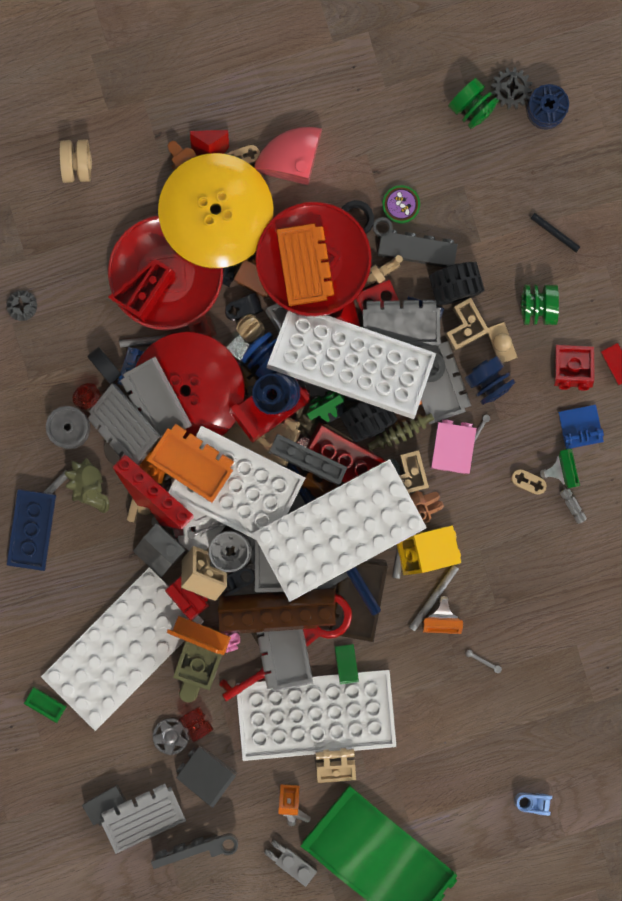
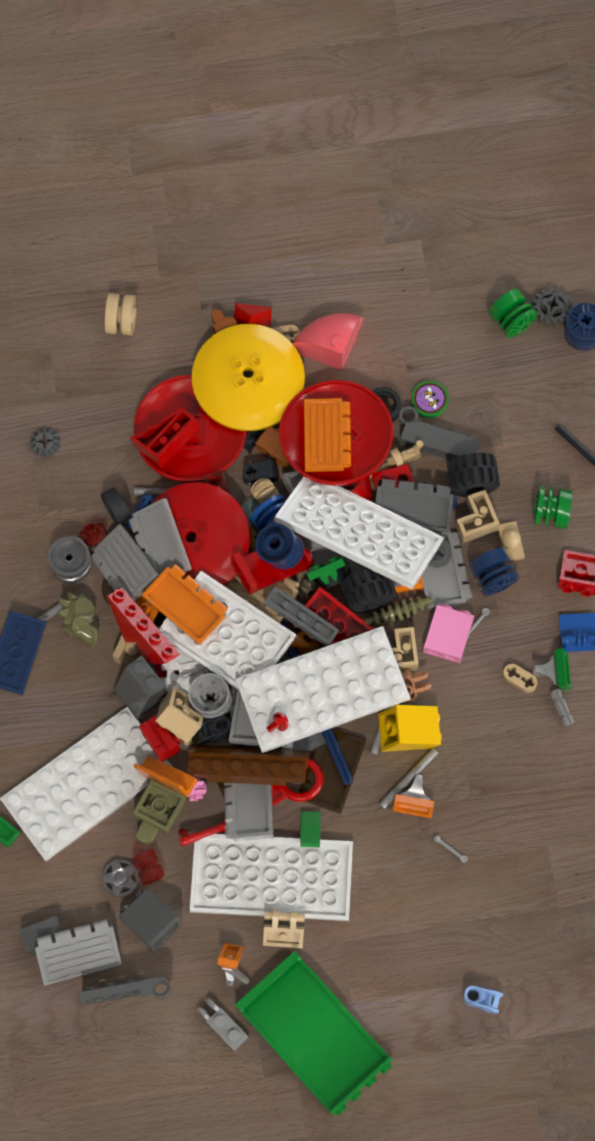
camera: 15 degrees right, 15 degrees down
(303, 573) = (279, 721): none -> red plate

